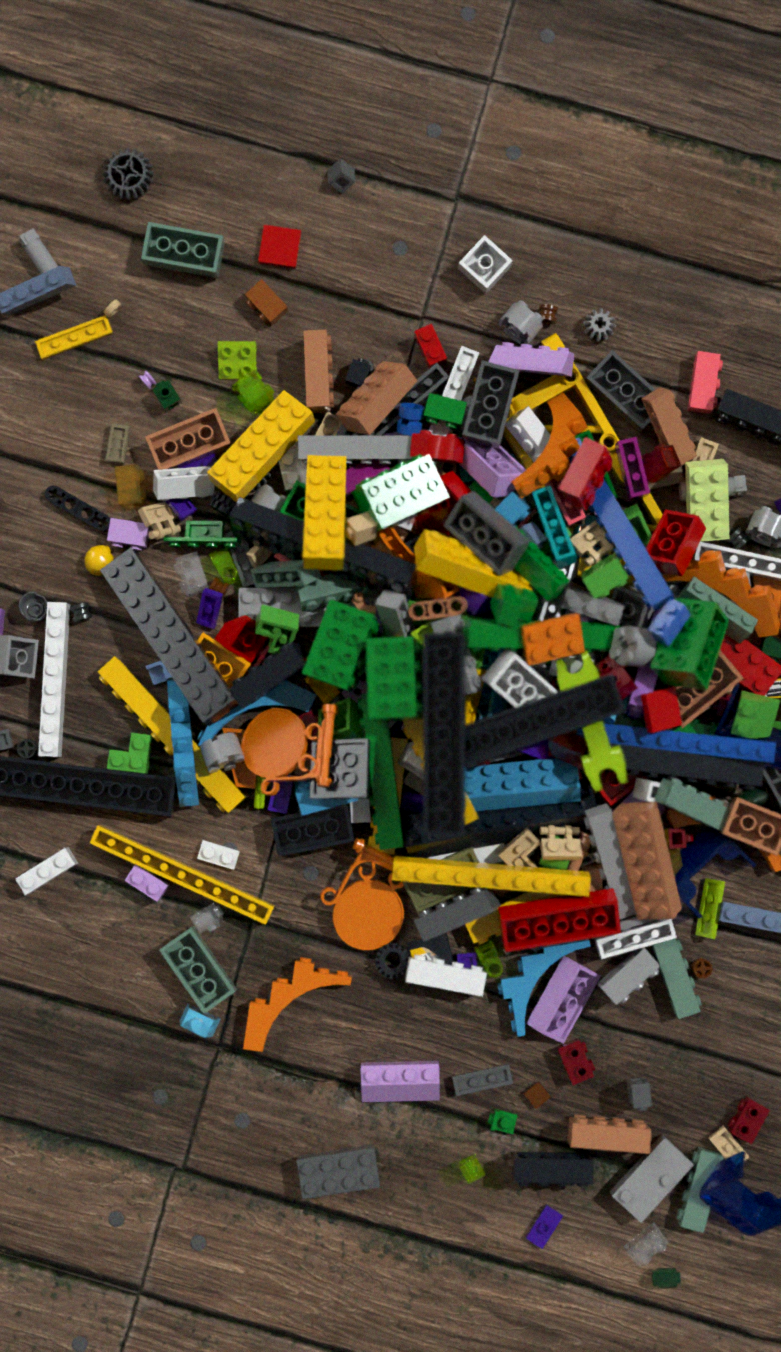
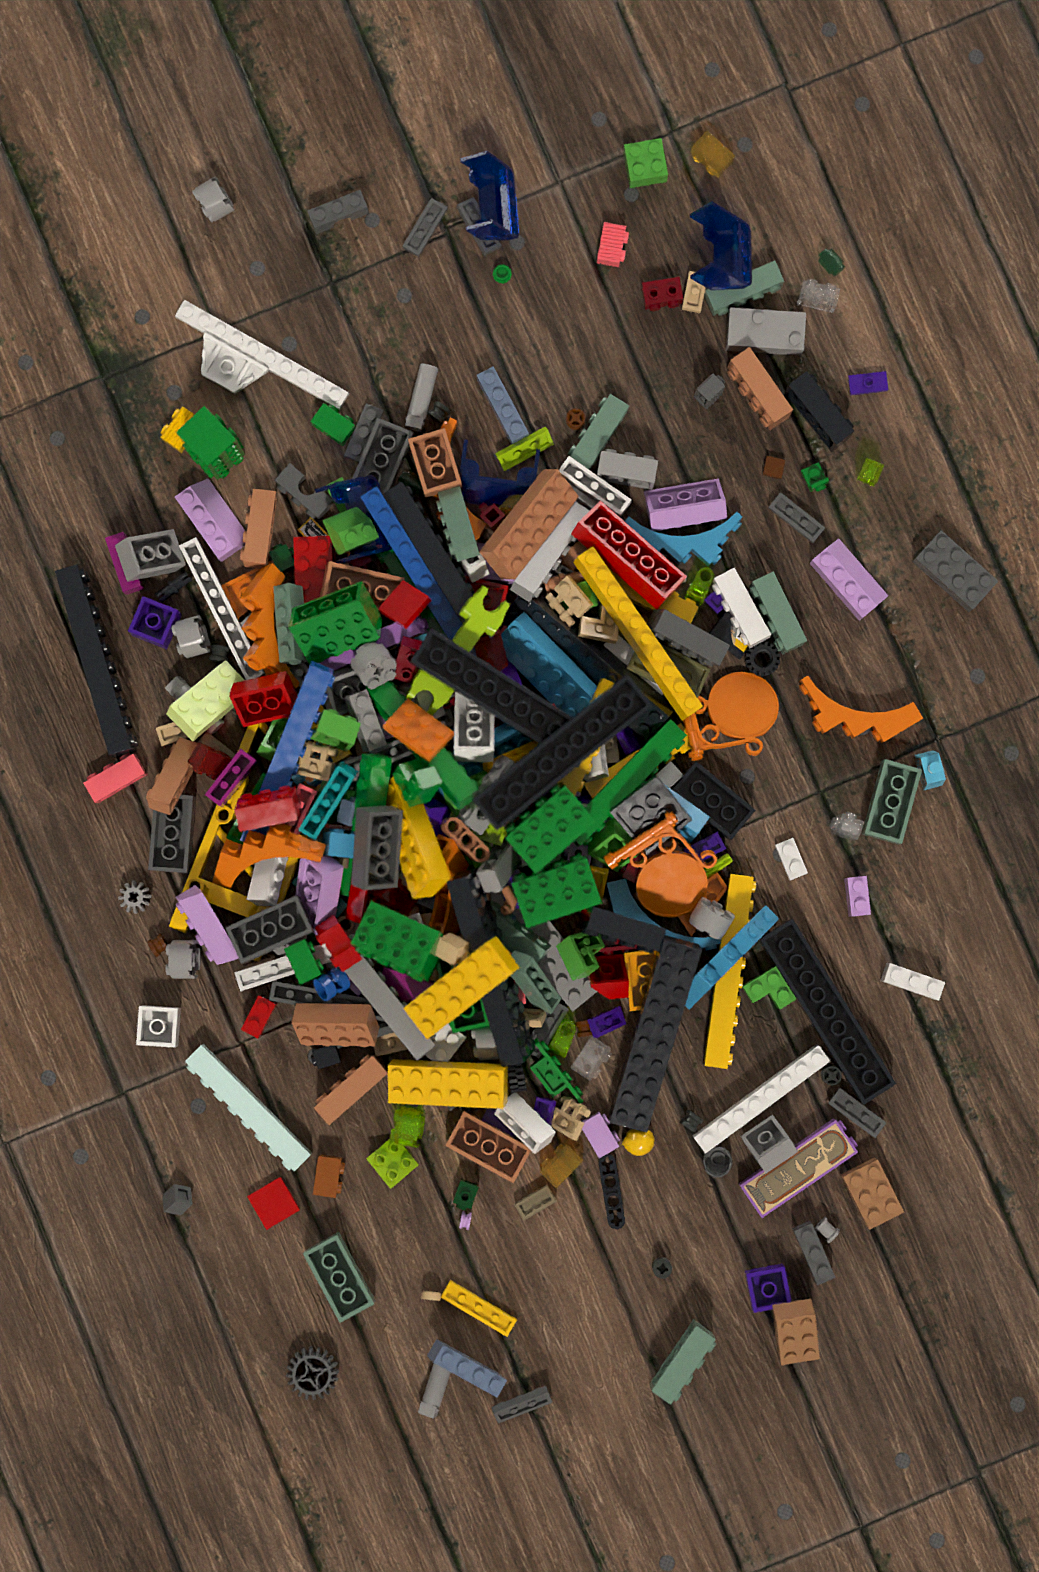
camera: 130 degrees left, 0 degrees up
(158, 672) = (689, 1021): light blue panel -> none
(182, 874) = (829, 874): yellow brick -> none
(367, 284) = (248, 1107): none -> light aqua brick
(419, 1001) = (777, 613): none -> sand green brick
(575, 1061) = (724, 458): dark red brick -> none
(669, 622) = (333, 650): blue brick -> none

